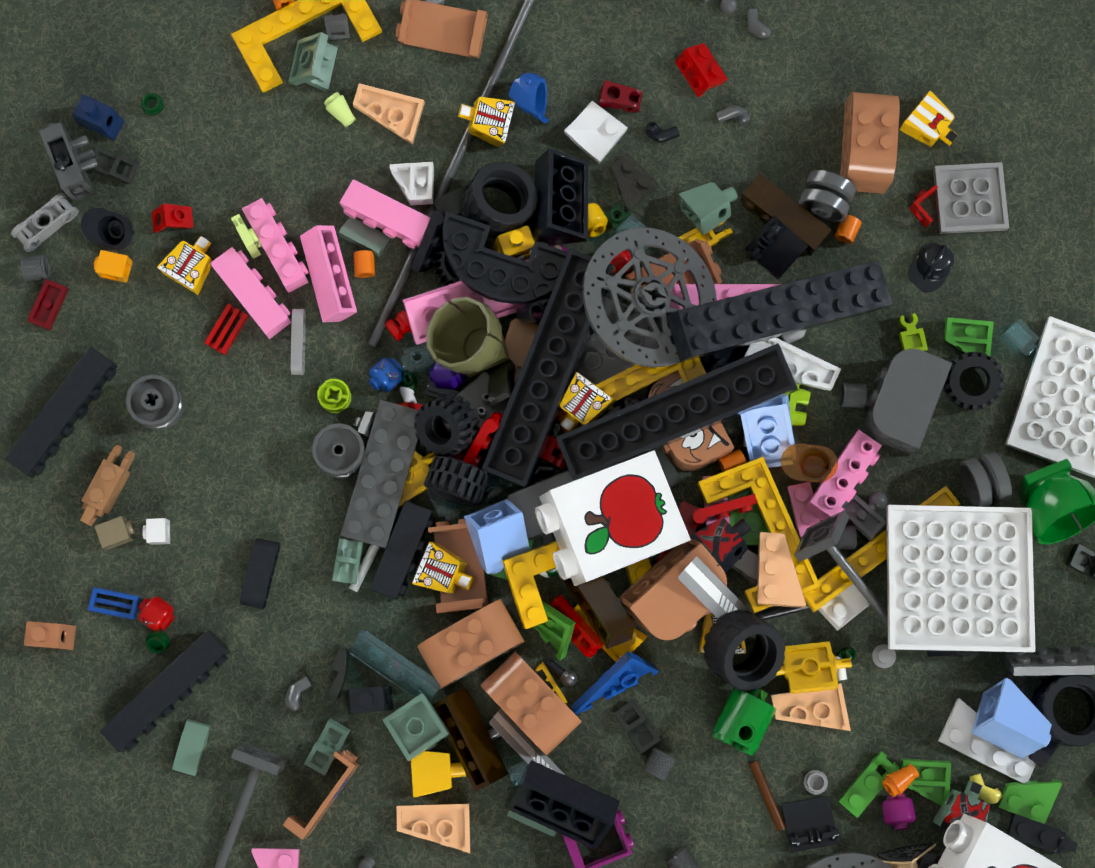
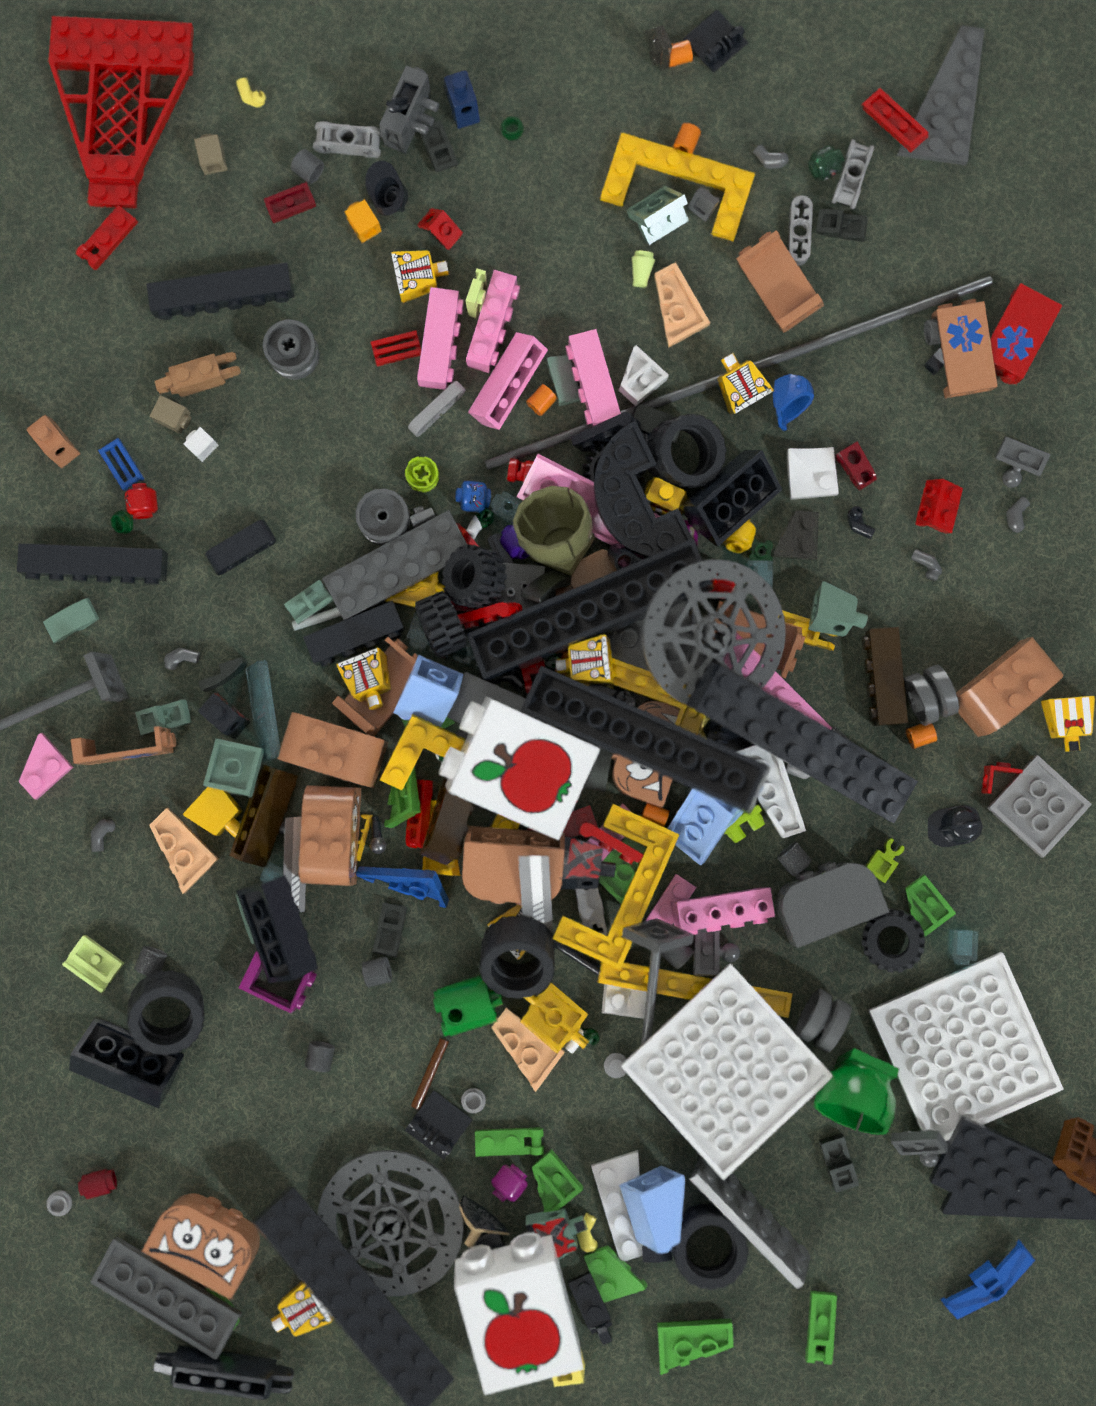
camera: 50 degrees right, 5 degrees up
(776, 247) = (853, 693): black hinge -> none
(776, 573) = (598, 927): light nougat wing -> none
(809, 462) = (707, 874): clear orange piece -> none
(898, 781) = (531, 1163): orange cone -> none

